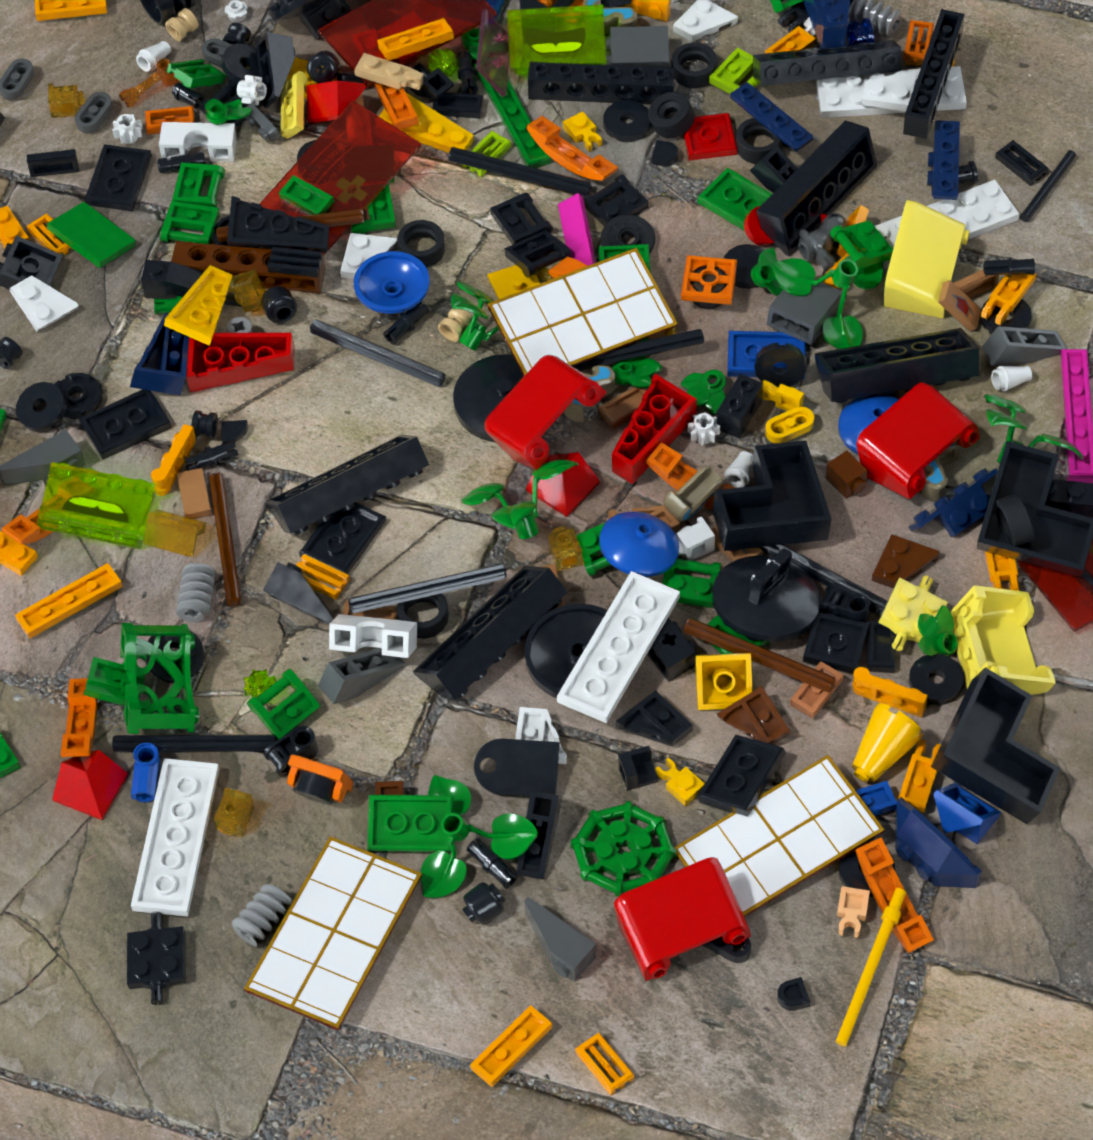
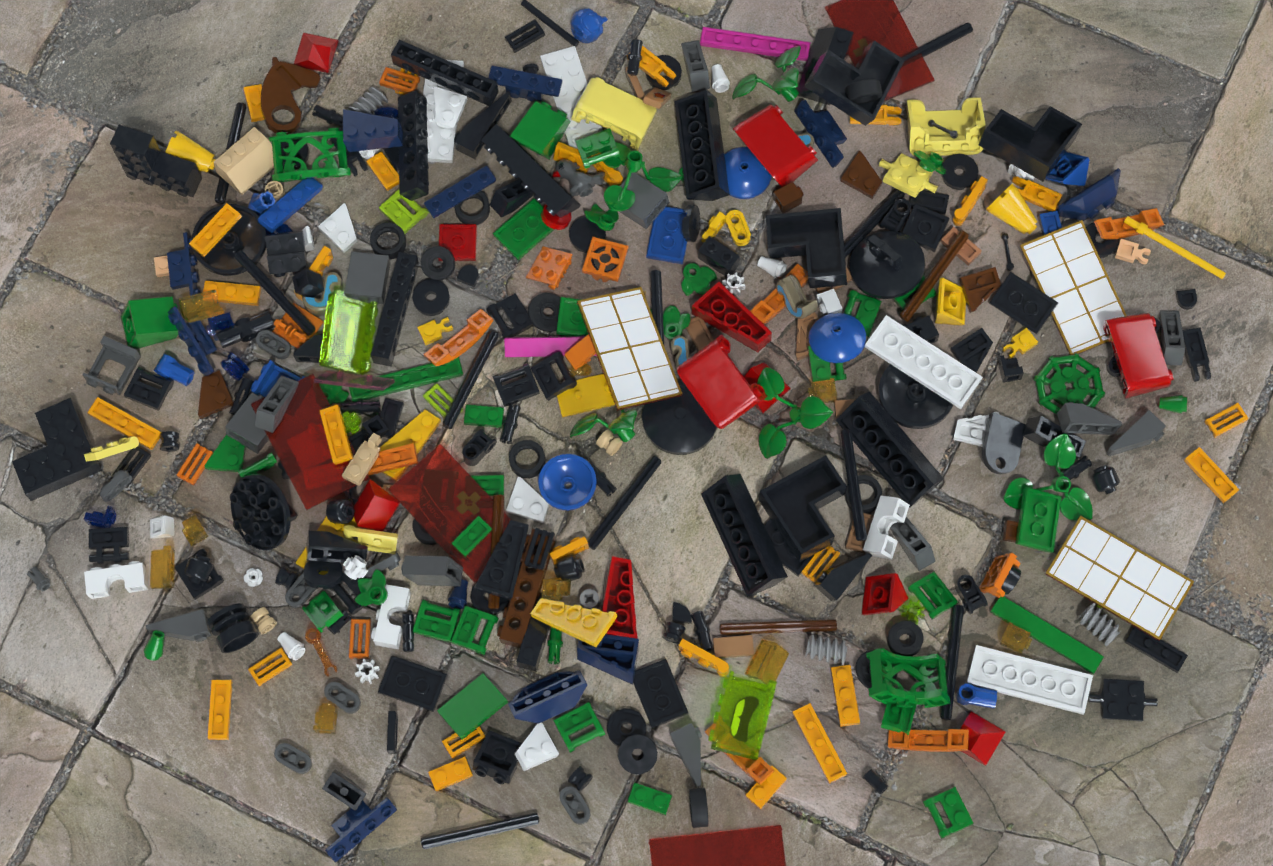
camera: 80 degrees left, 15 degrees up
(20, 670) = (875, 781): none -> black pin
(80, 340) = (576, 721): none -> green plate
(103, 299) = (548, 697): none -> dark blue wedge
(110, 628) = (845, 695): none -> light orange plate
(113, 36) = (273, 673): none -> light orange tile
(220, 668) = (910, 629): none -> black tyre
(224, 199) = (458, 596): none -> dark blue cone
(233, 1000) = (1157, 650): none -> black tile
(244, 855) = (1047, 634): none -> green tile
(253, 160) = (432, 570): none -> dark grey brick
(280, 649) = (883, 594): none -> red slope
(307, 306) = (576, 546): none -> light orange plate
(390, 524) = (795, 505): none -> black piece
(429, 191) = (479, 444): none -> black piece
(467, 222) = (510, 424): none -> black pin
(474, 196) = (484, 416): none -> green plate
(566, 856) = (1086, 420): none -> dark grey slope
(617, 988) = (1174, 403): none -> green cone
(695, 230) = (550, 266): none -> orange hinge
(704, 1011) = (1196, 353): none -> black hinge
(721, 972) = (1171, 337): none -> dark grey slope
(800, 758) = (1010, 266): none -> black hinge
(877, 183) = (541, 129): none -> green slope
(885, 136) = (469, 139): none -> black slope
(985, 651) = (953, 134): none -> black hinge
(1049, 218) = (587, 25): none -> blue helmet

